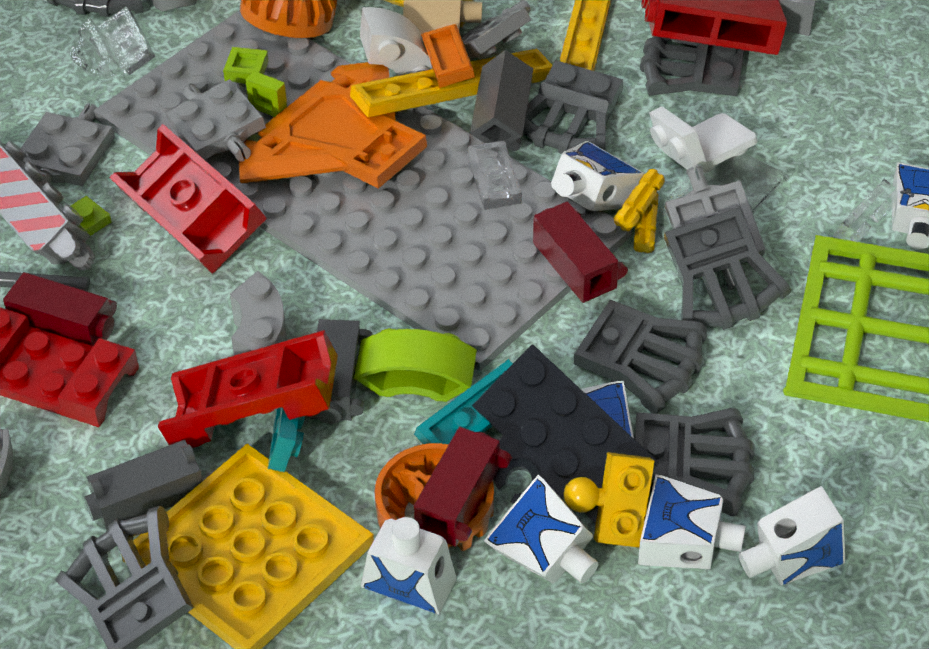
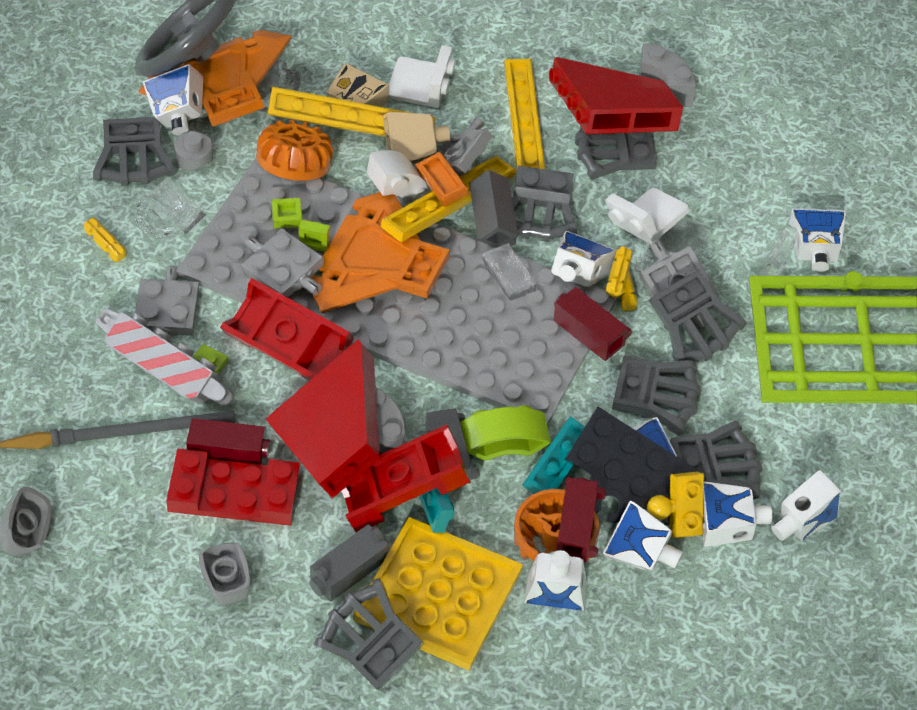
camera: 20 degrees left, 5 degrees up
(28, 65) = (105, 239): none -> yellow axle
(192, 305) = (334, 420): none -> red slope

